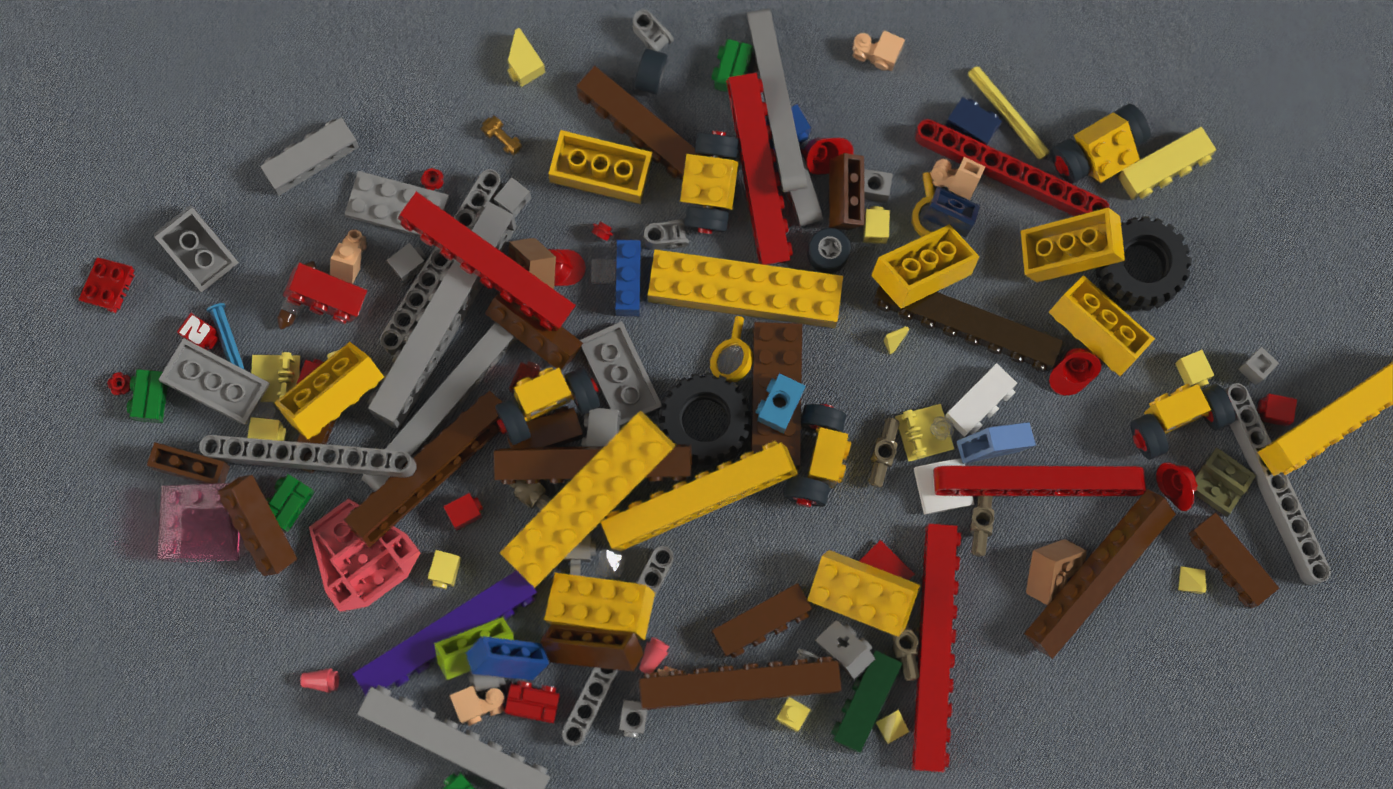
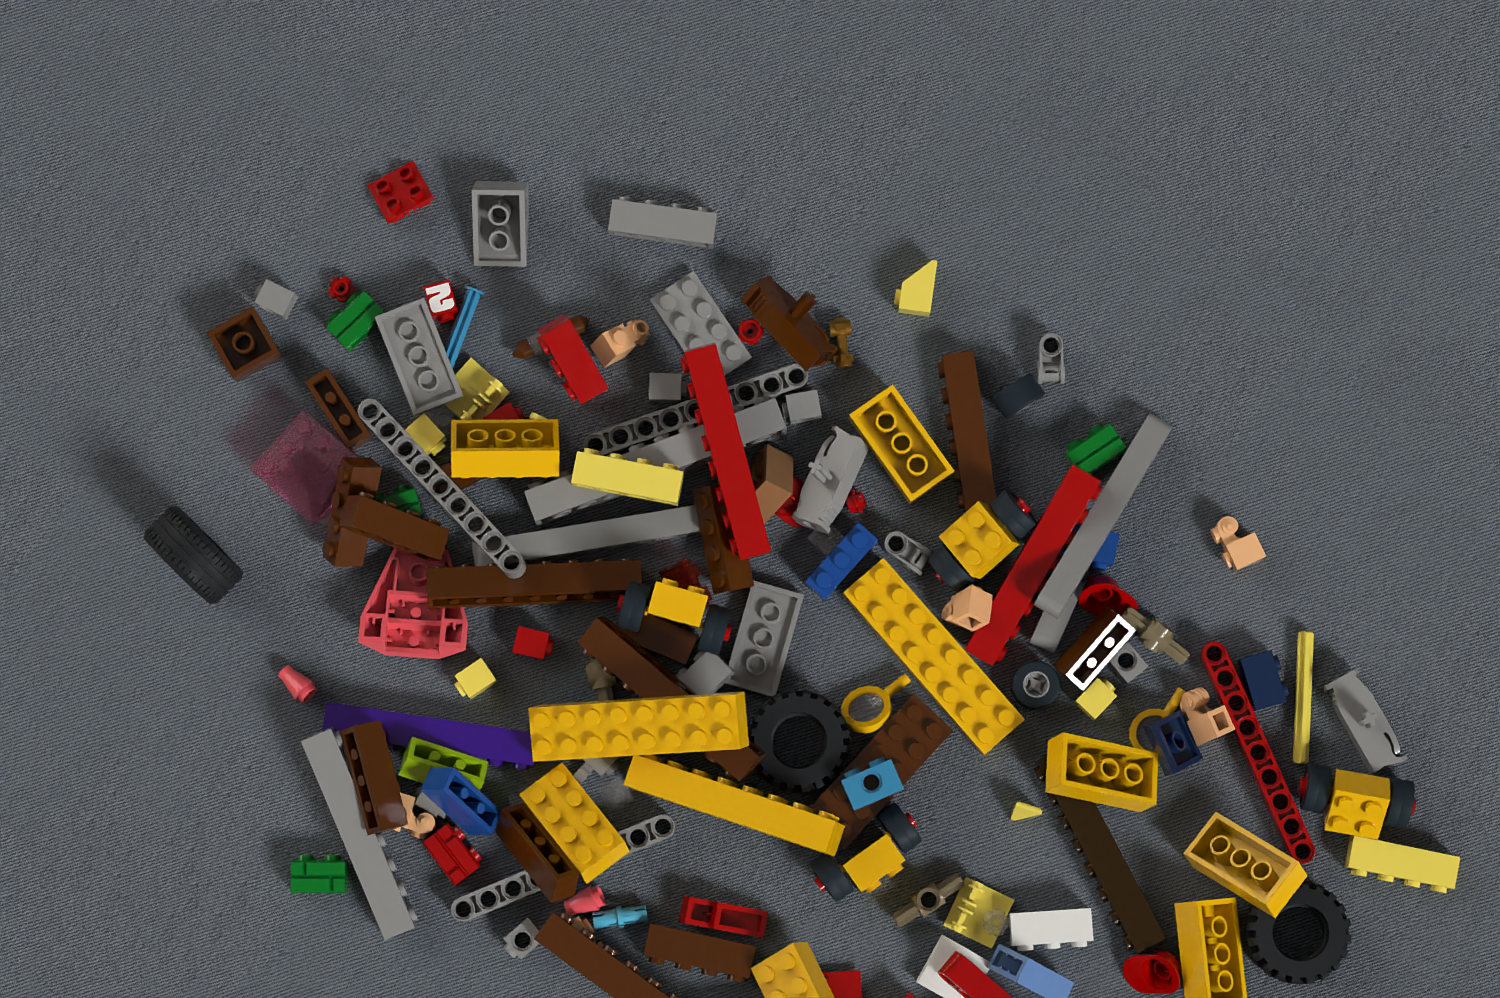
camera: 50 degrees right, 5 degrees up
(77, 429) = (275, 299): none -> light grey brick
(81, 476) = (244, 344): none -> reddish brown brick
(166, 650) = (193, 555): none -> black tyre
(296, 509) = (394, 527): none -> reddish brown brick
(431, 695) = (374, 777): none -> reddish brown brick
(432, 336) = (626, 477): none -> light yellow brick
(454, 148) = (790, 322): none -> reddish brown piece
(573, 229) = (830, 480): none -> light grey piece
(686, 645) = (619, 916): none -> medium azure pin
(740, 235) = (969, 608): none -> light nougat brick
(756, 584) = (723, 916): none -> red slope
(880, 151) = (1155, 635): none -> dark tan axle
(1061, 94) = (1364, 722): none -> light grey piece

